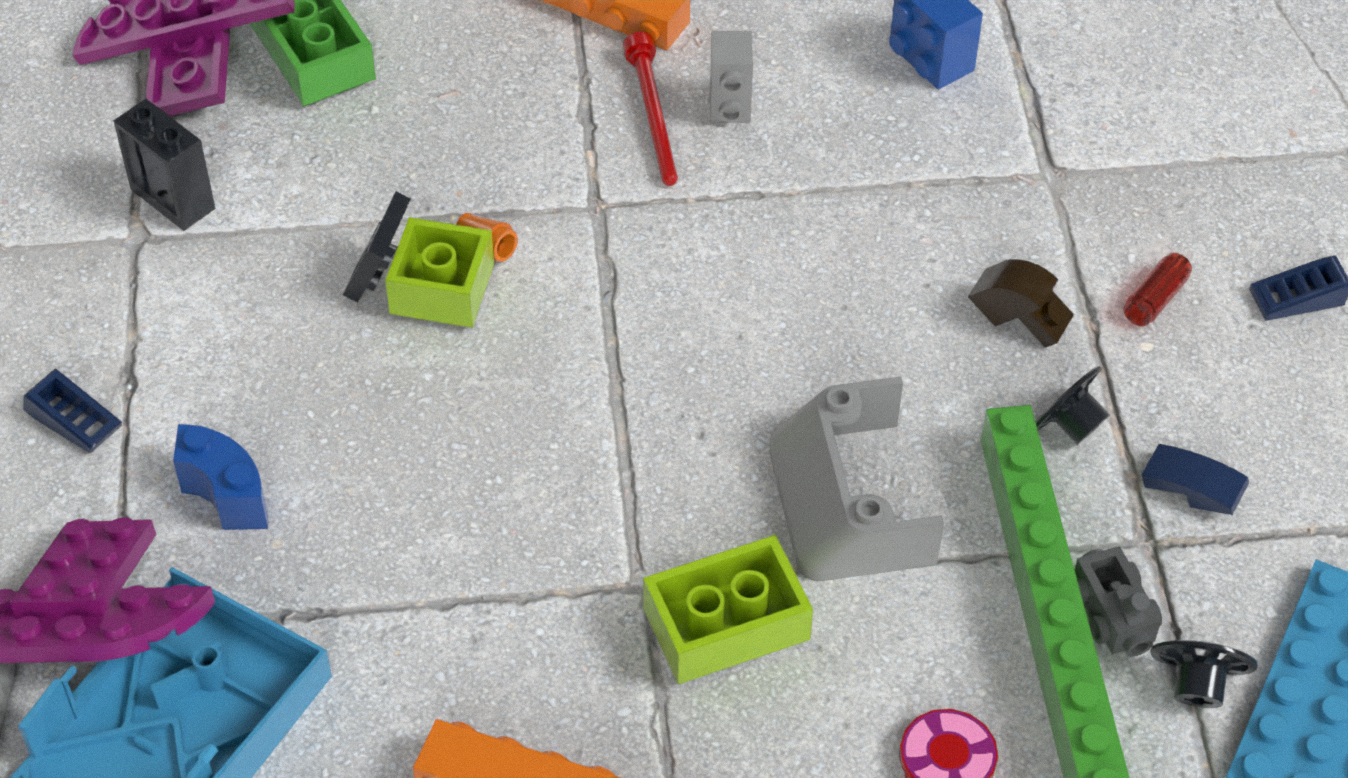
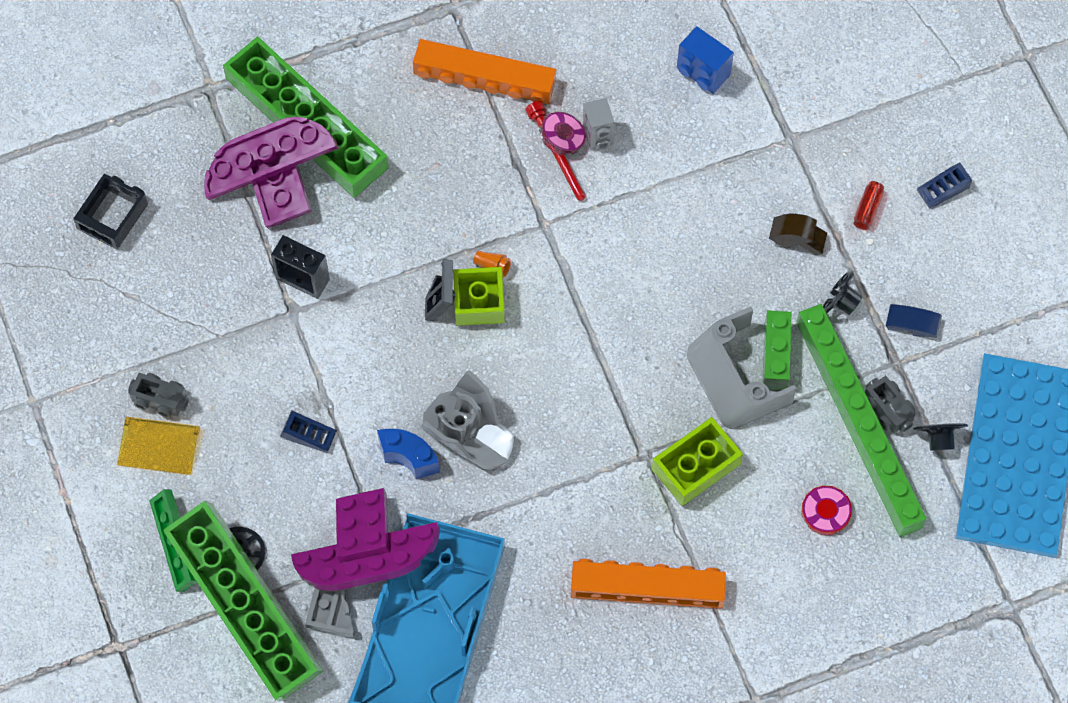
camera: 15 degrees left, 15 degrees up
(348, 460) = (481, 435): none -> light grey piece
(670, 84) = (562, 133): none -> tile
(932, 459) = (777, 349): none -> bright green brick

